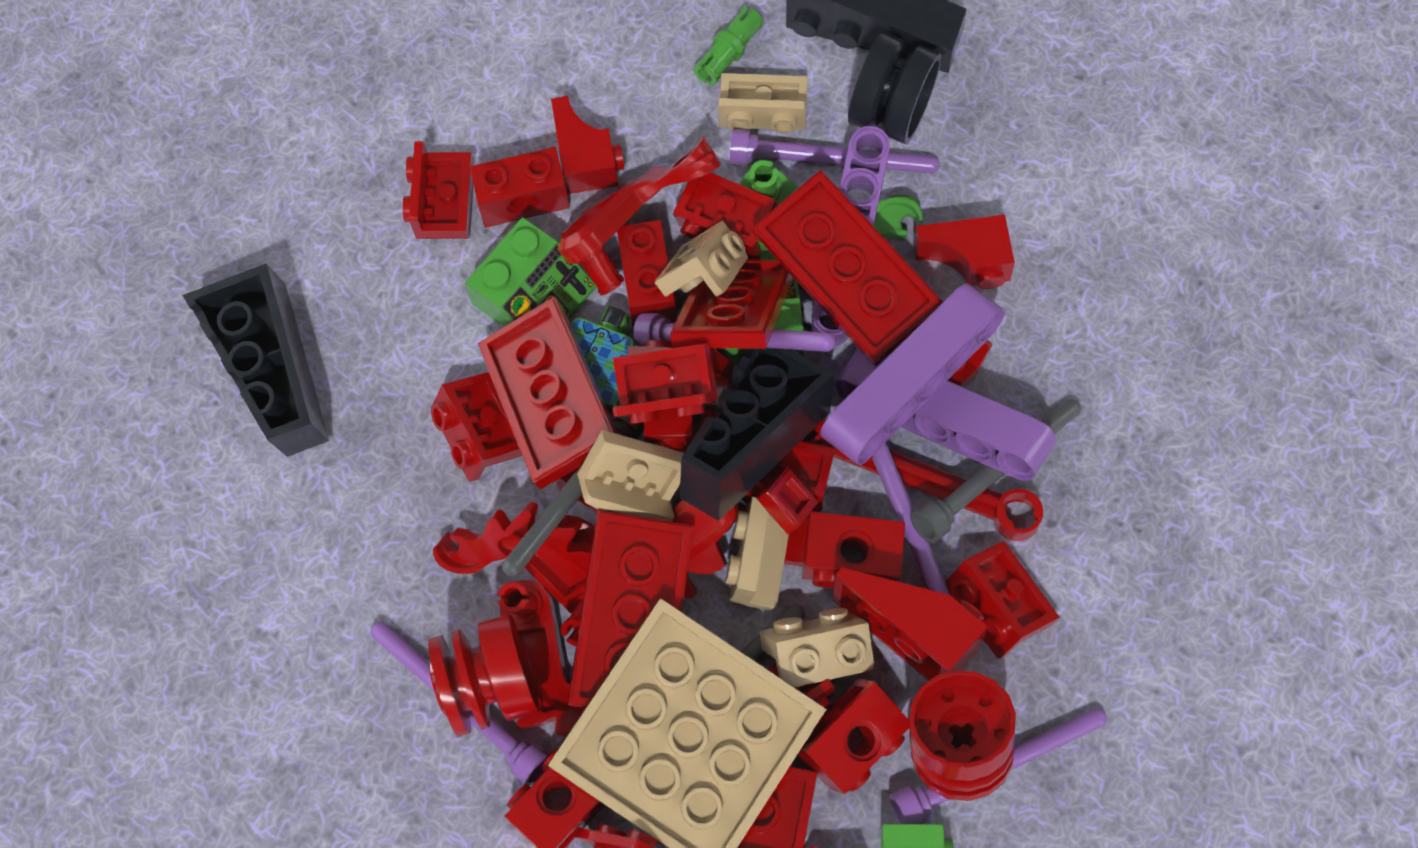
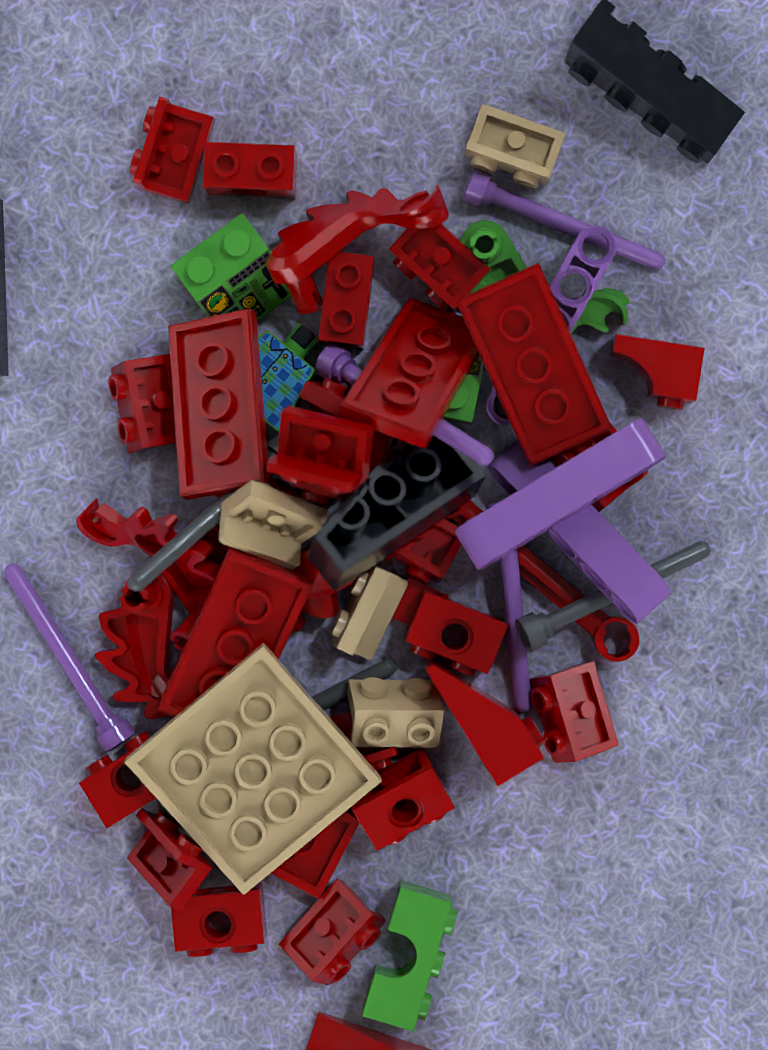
camera: 15 degrees right, 20 degrees up
(482, 675) = (80, 660): red wheel -> none
(584, 151) = (322, 152): red arch -> none
(709, 257) = (401, 315): tan bracket -> none
(728, 46) = (499, 71): bright green pin -> none
(787, 500) = (407, 577): red tile -> none
(894, 87) = (643, 180): black wheel -> none
(915, 804) = (438, 870): medium lavender piece -> none
(958, 711) = (497, 809): red wheel -> none

